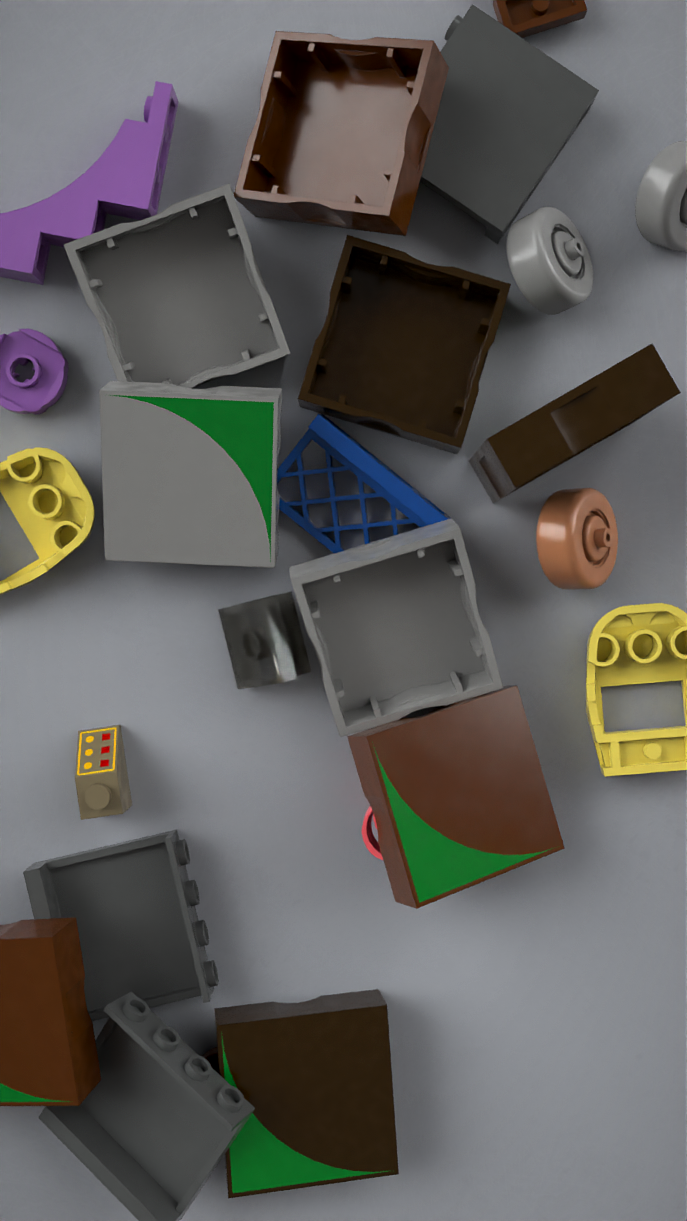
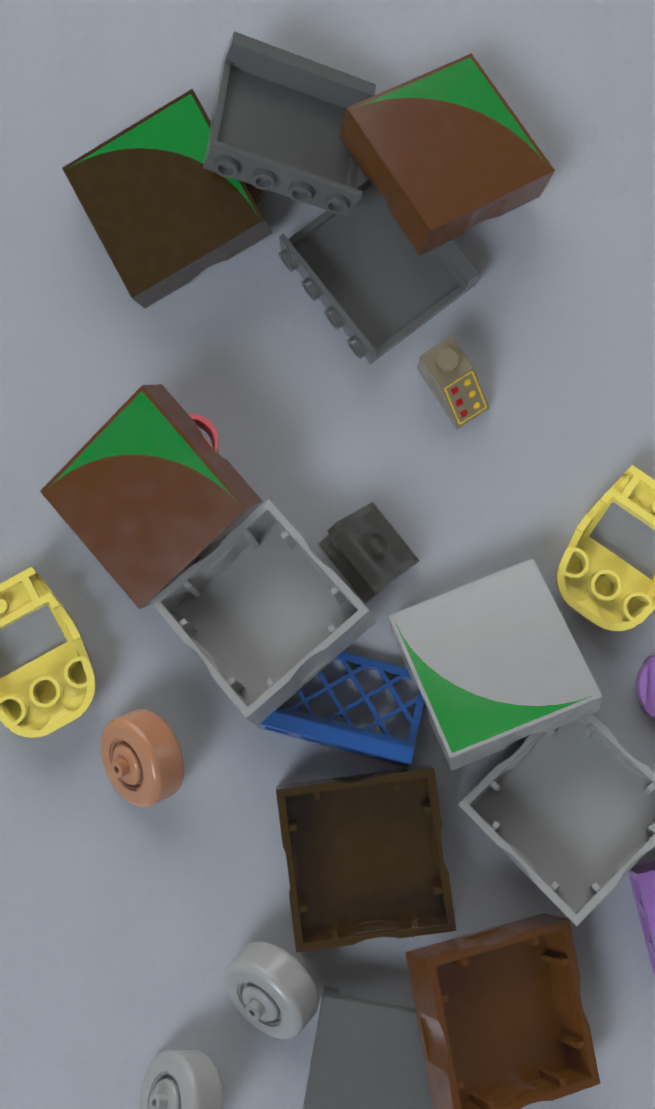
camera: 150 degrees right, 5 degrees down
(573, 423) = (187, 851): dark brown tile -> none

